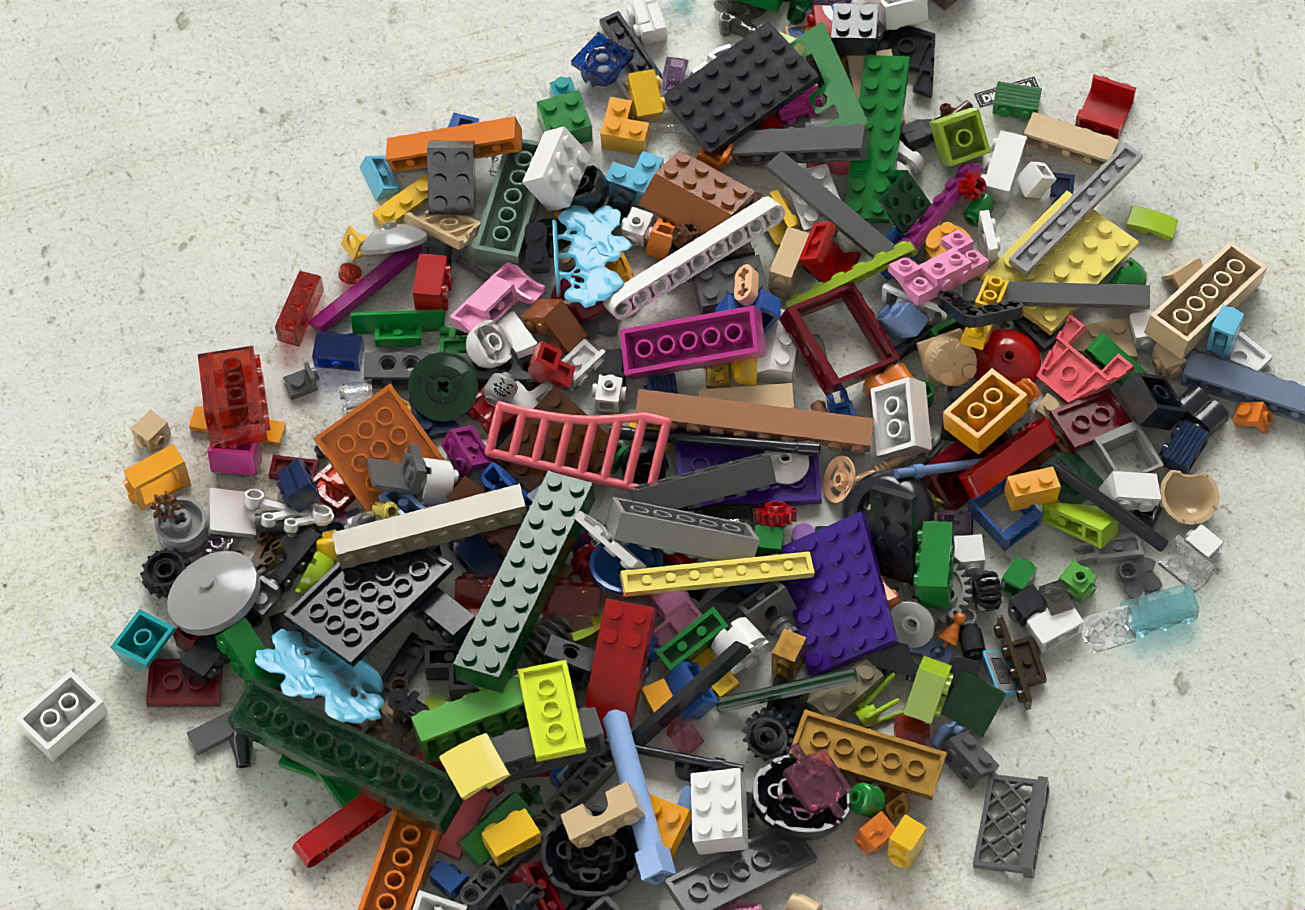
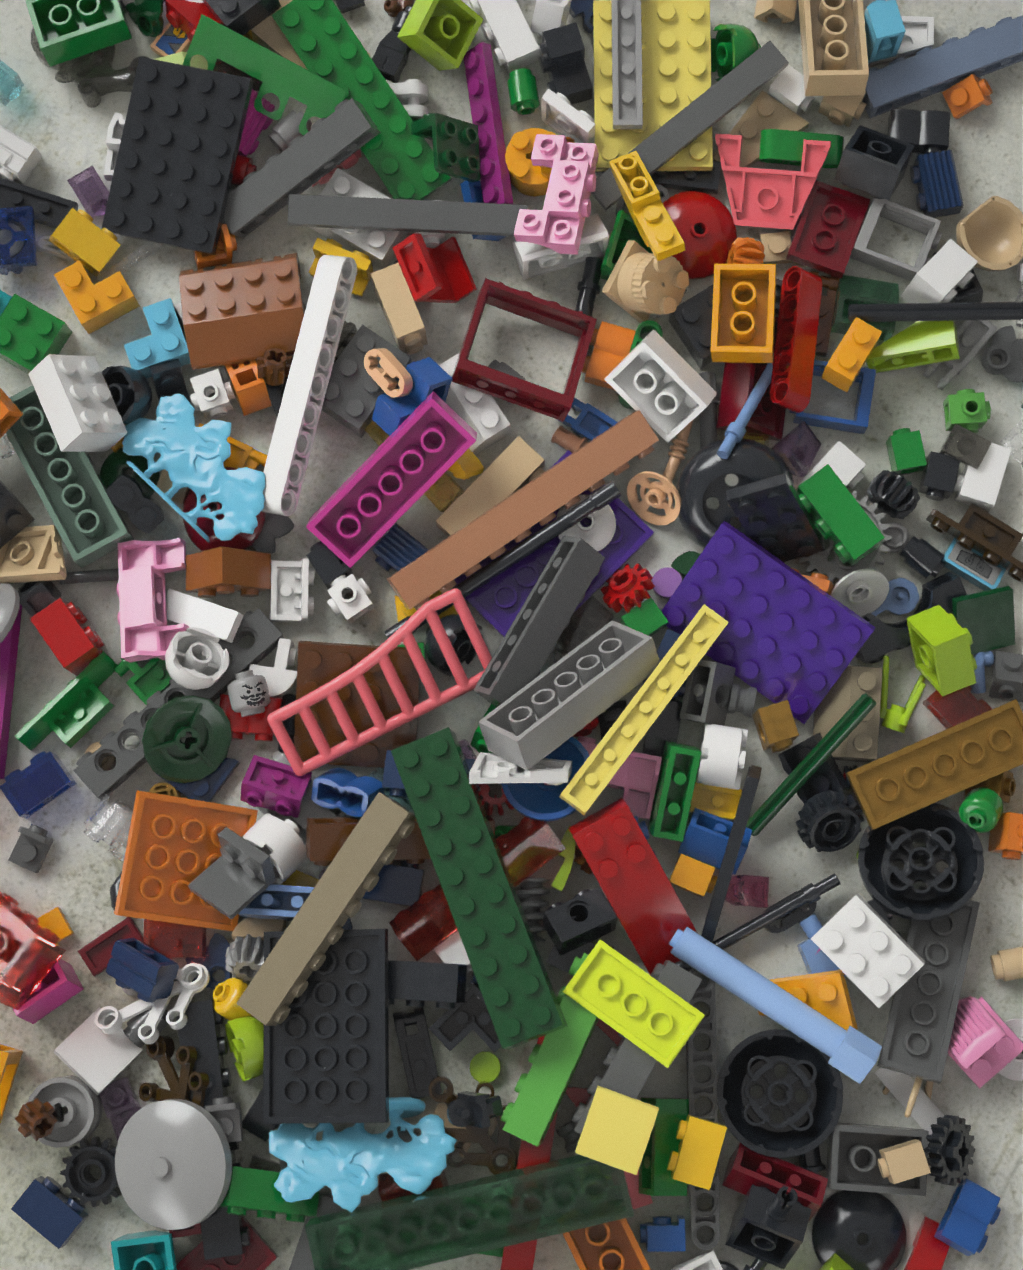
camera: 40 degrees left, 20 degrees up
(121, 573) = (50, 1211): none -> dark blue brick
(385, 510) = (263, 924): light yellow pin -> none
(531, 795) = (658, 1079): clear green plant -> none
(548, 367) = (276, 626): red brick -> none
(622, 810) = (759, 1081): tan arch -> none
(817, 781) = (931, 839): clear pink plate -> none
(859, 272) = (482, 261): lime plate -> none
(901, 320) = (564, 277): medium blue brick -> none
(950, 635) = (900, 569): orange piece -> none
(972, 186) = (502, 73): red gear -> none
(979, 316) = (649, 224): black beam -> none
(1017, 211) = (563, 59): none -> black brick

